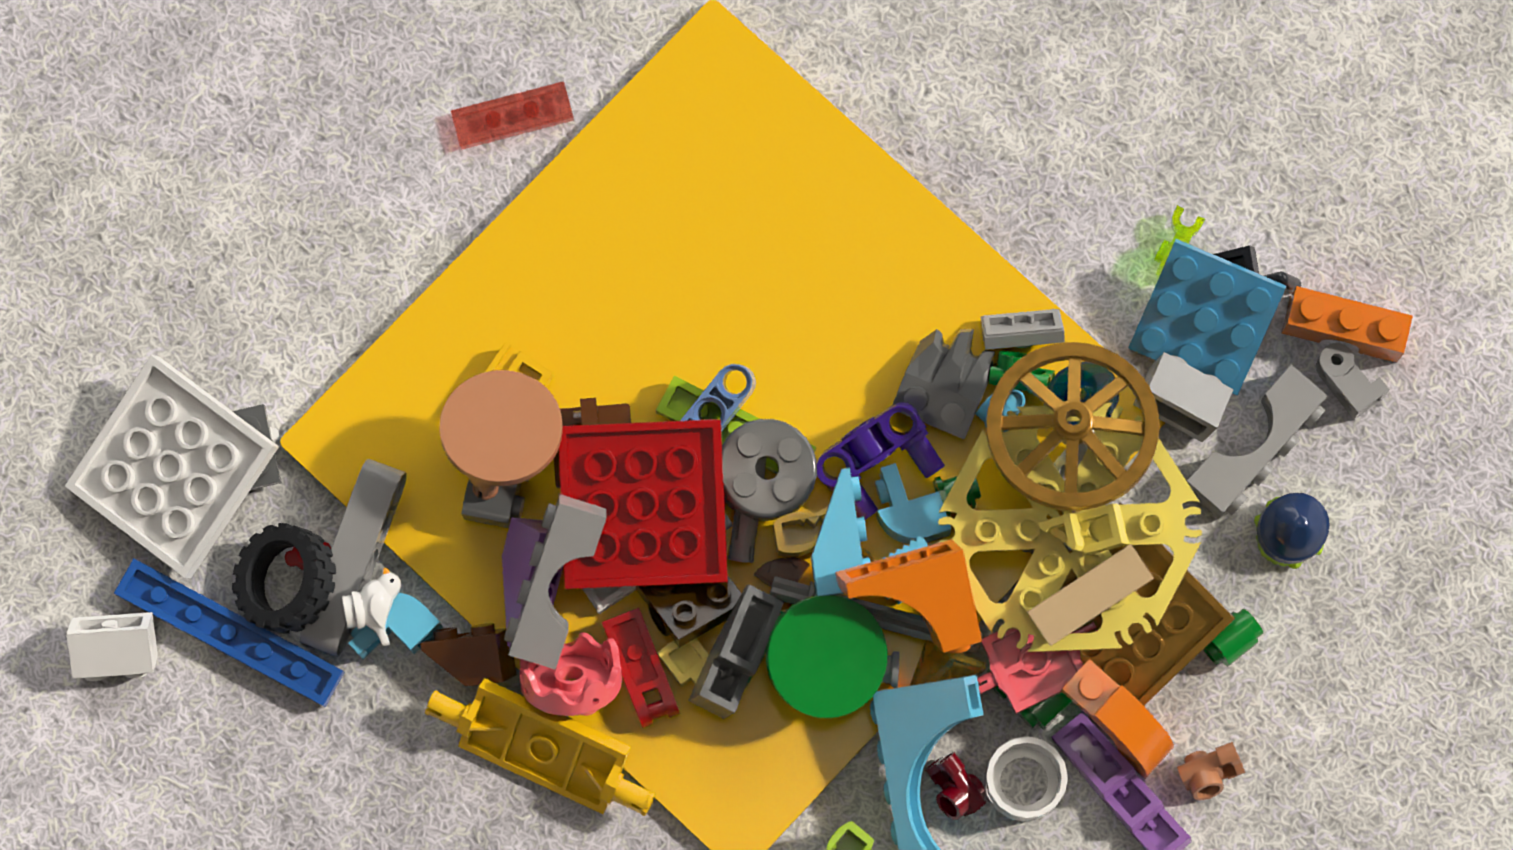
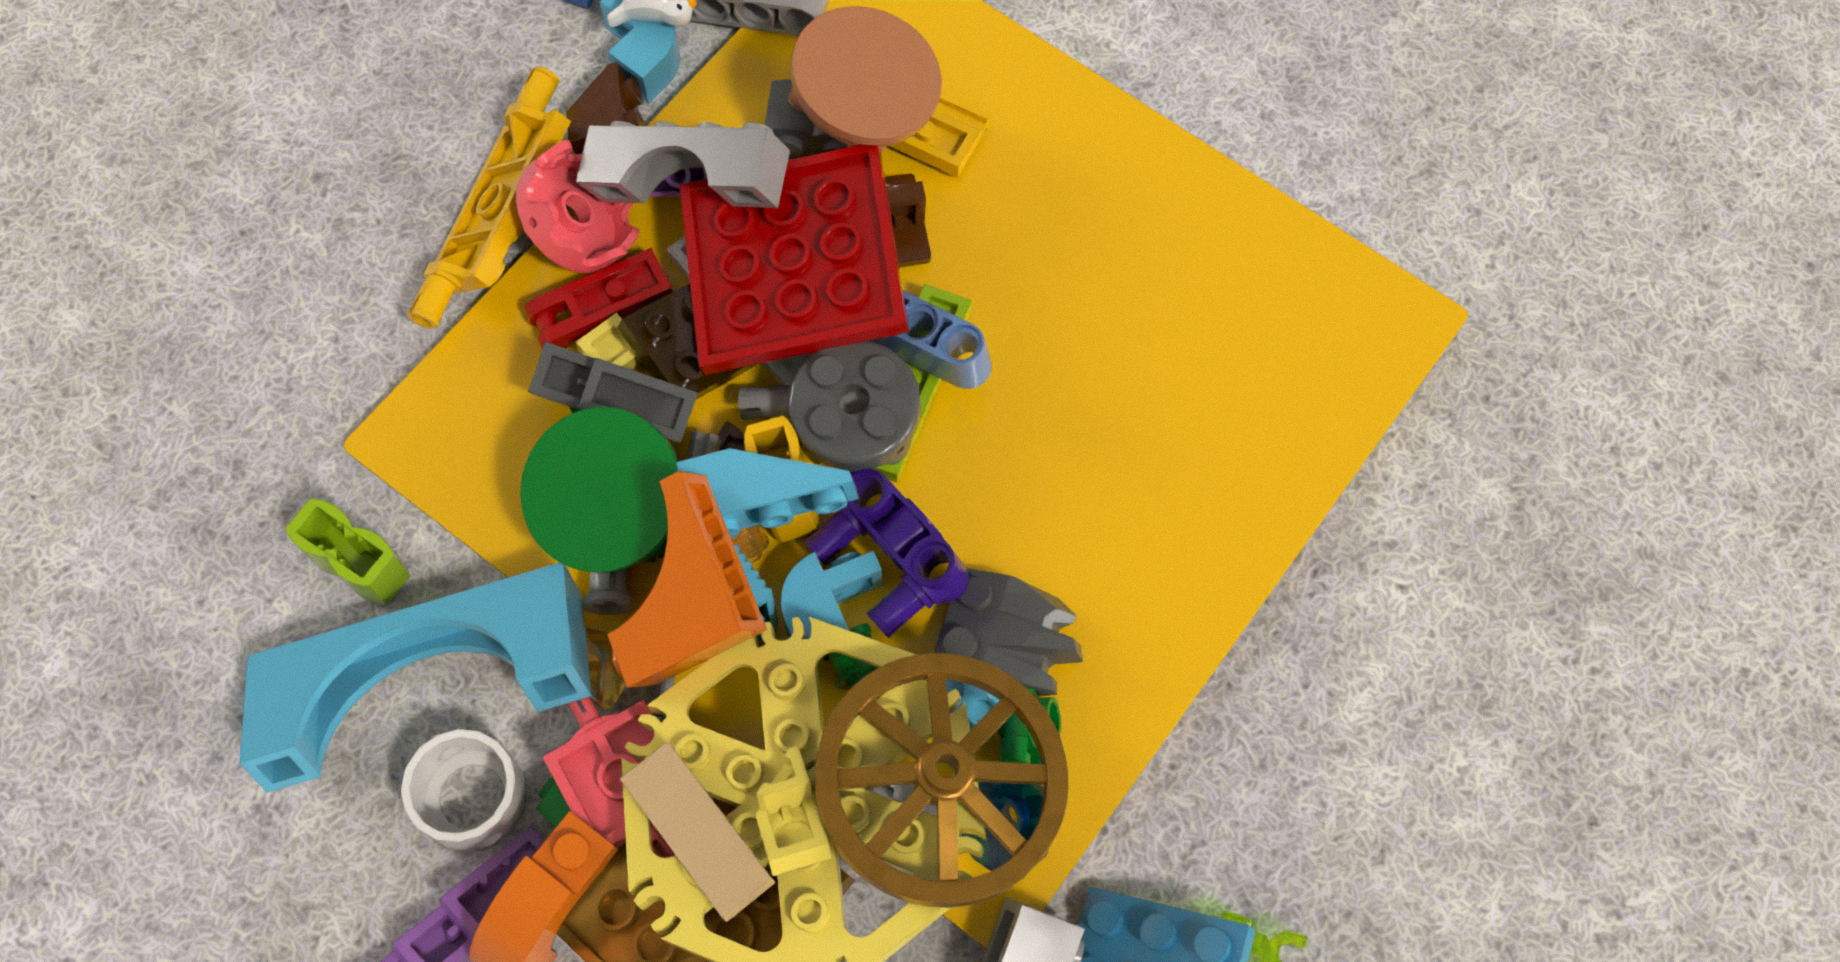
camera: 80 degrees right, 10 degrees down
(512, 115) = (1273, 114): clear red tile -> none
(960, 791) = (450, 707): dark red plate -> none
(1022, 329) = (1092, 729): light grey plate -> none

